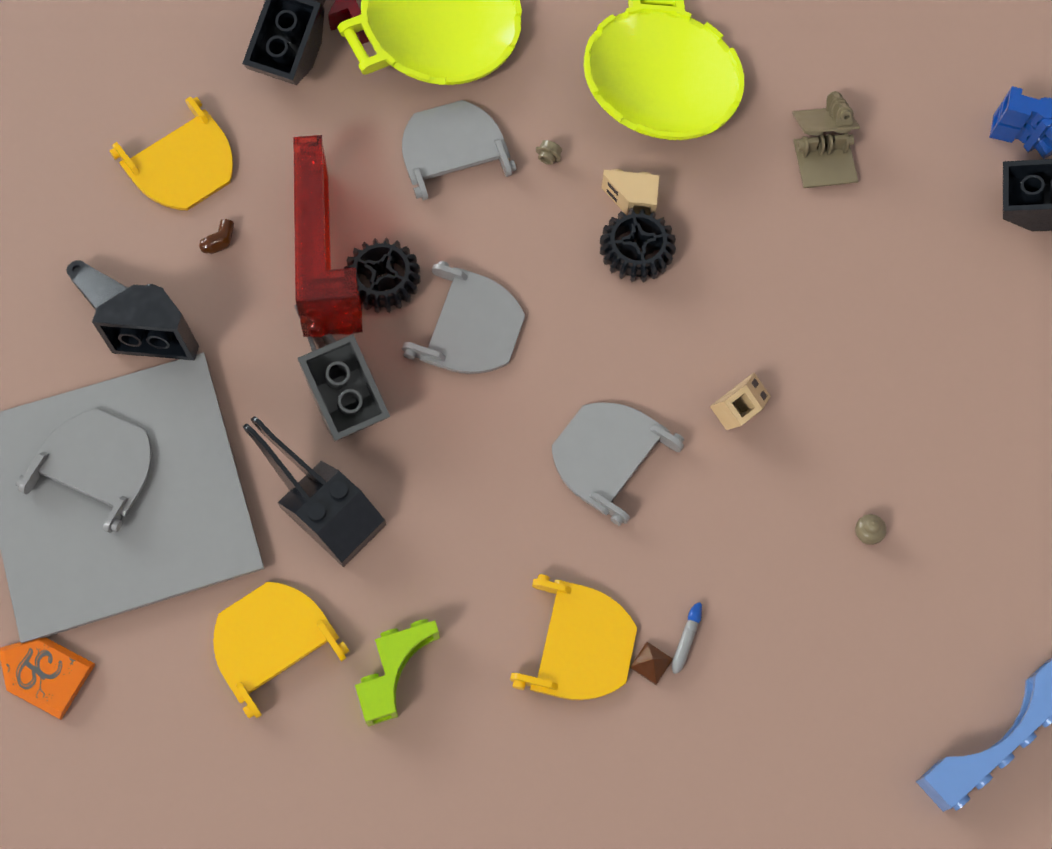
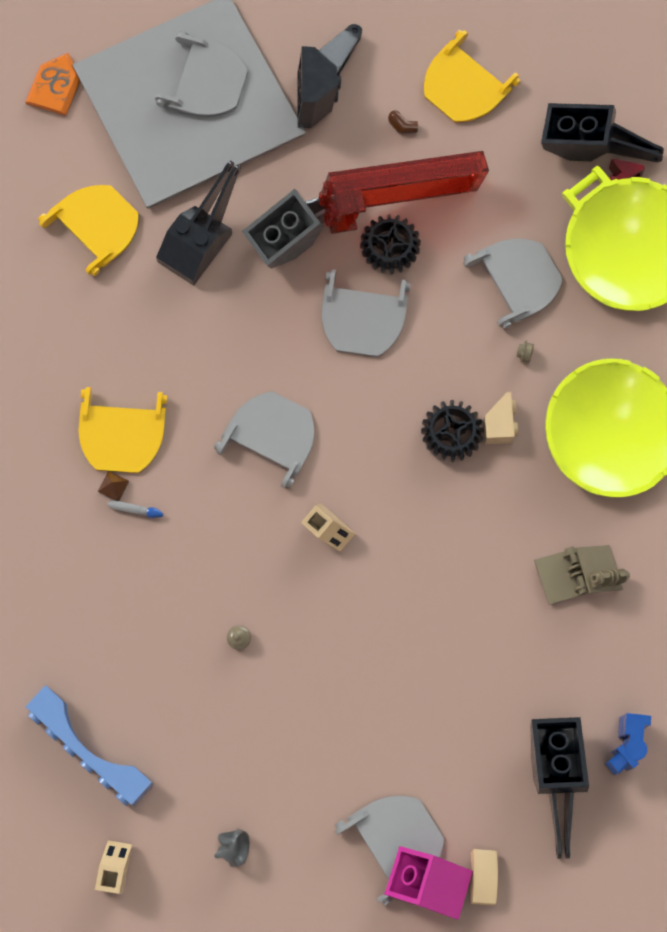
camera: 85 degrees right, 5 degrees up
(395, 649) = (65, 301): lime arch -> none

